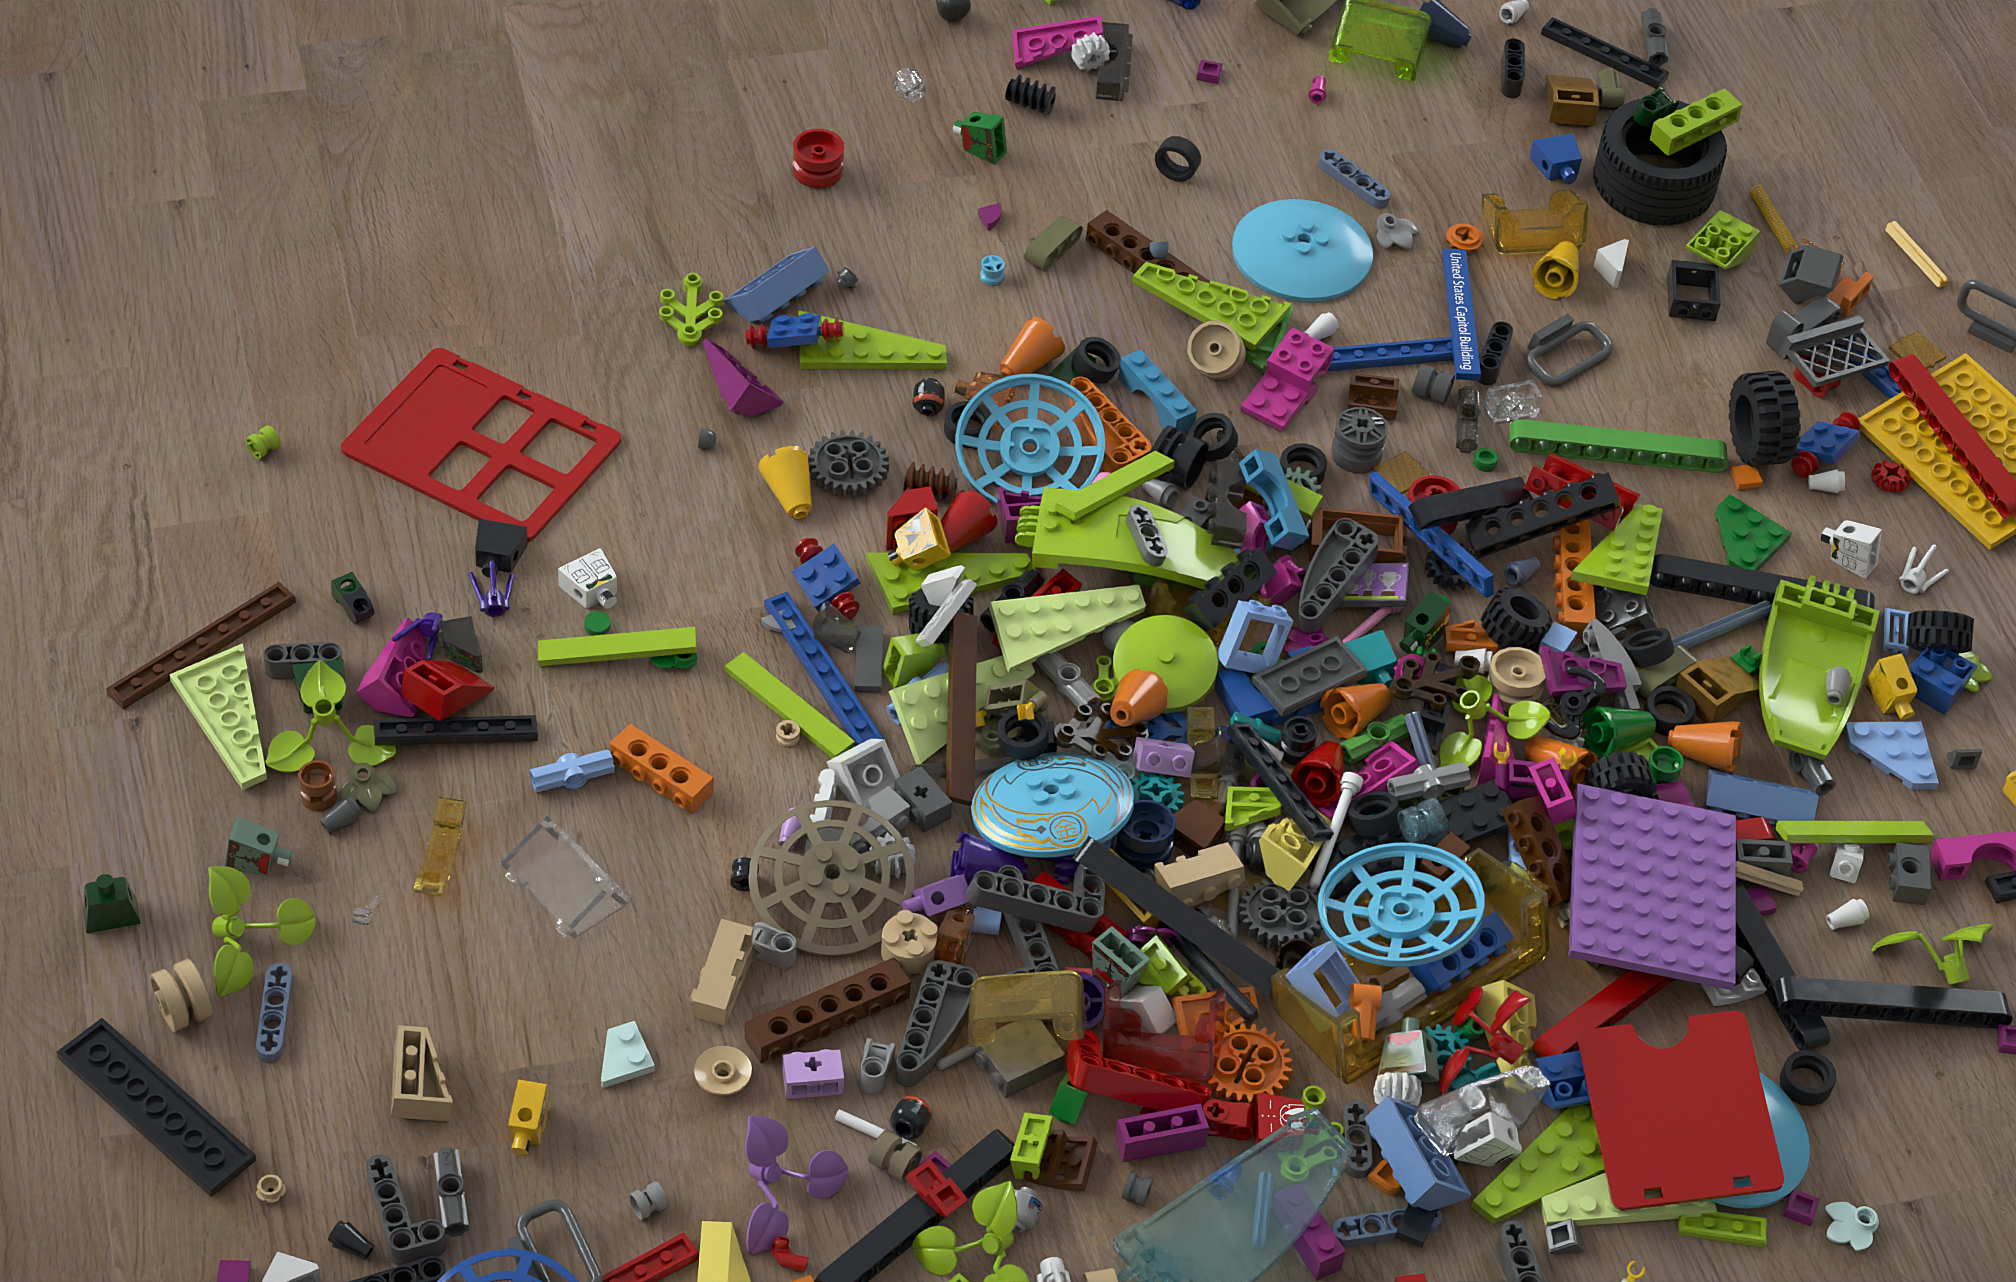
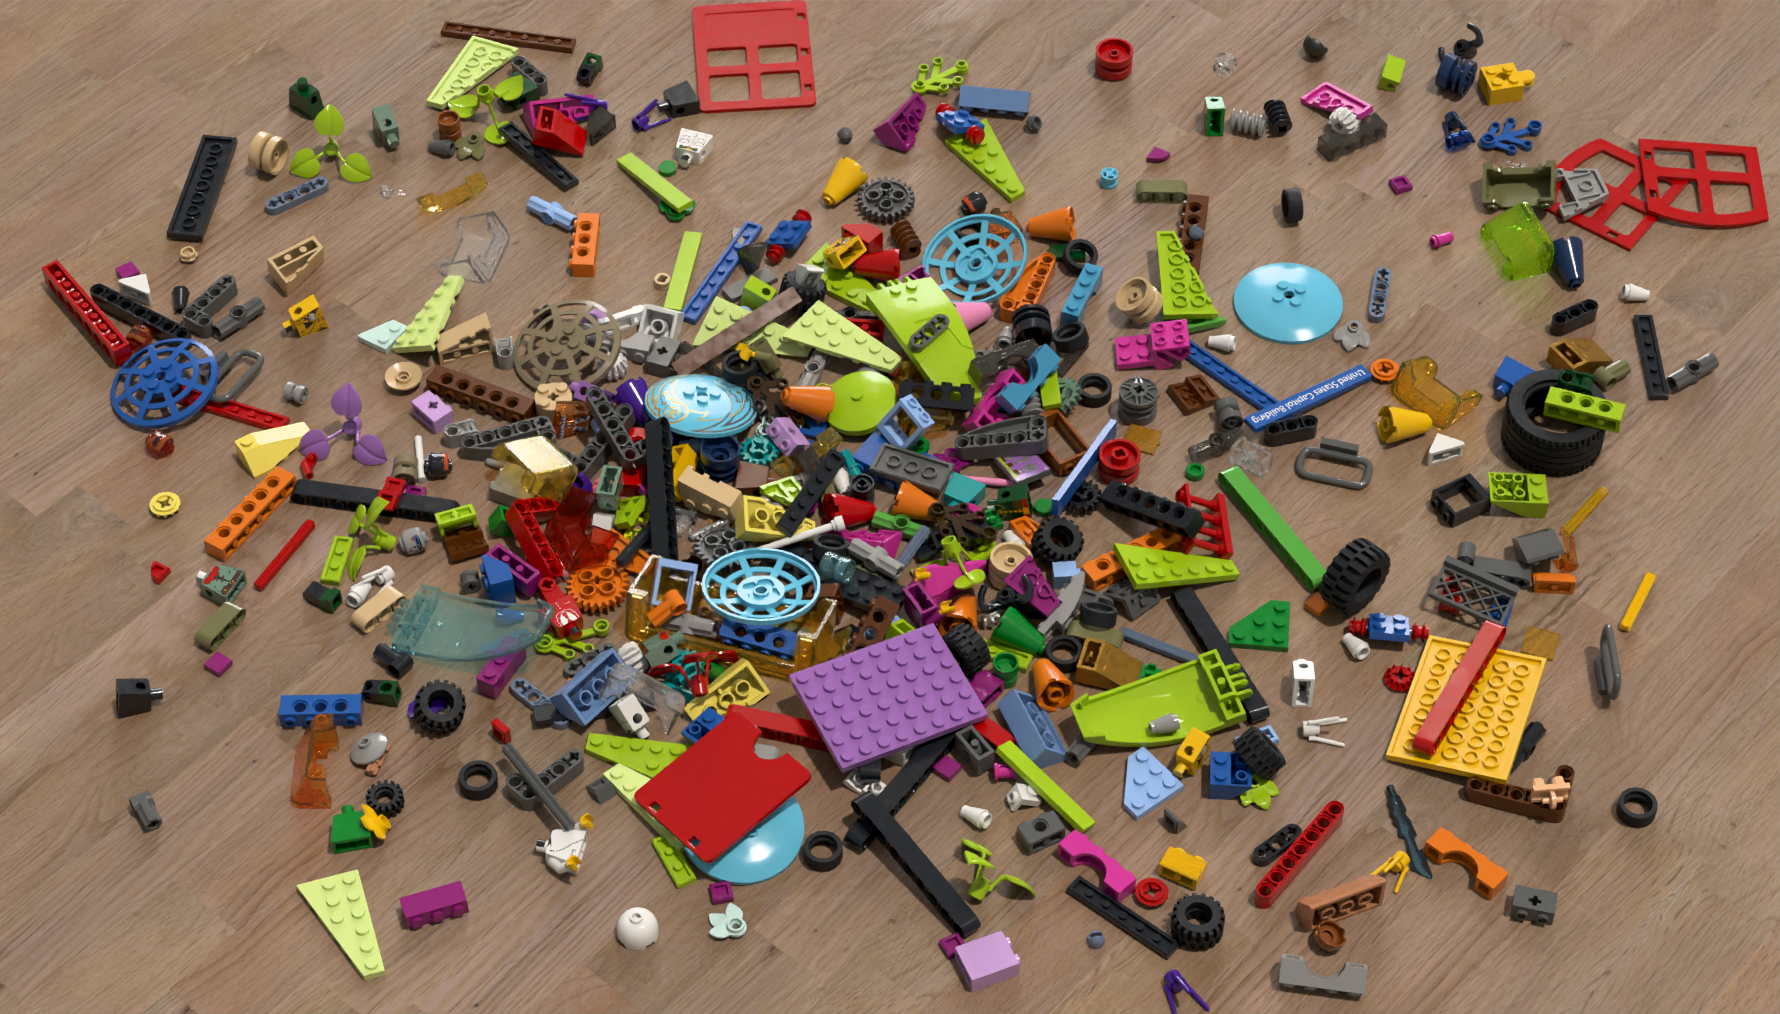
camera: 60 degrees right, 0 degrees up
(656, 995) = (425, 327): none -> yellowish green wing
(945, 612) = (784, 283): white tile -> none
(1021, 117) = (1248, 123): none -> light grey piece
(1114, 485) = (961, 303): lime tile -> none
(1171, 1157) = (497, 580): none -> blue slope
(1468, 503) = (1119, 466): black beam -> none
(1520, 571) = (1112, 531): sand blue cone -> none
(1553, 791) = (908, 611): dark pink slope -> none
(1768, 879) = (963, 759): tan axle -> none

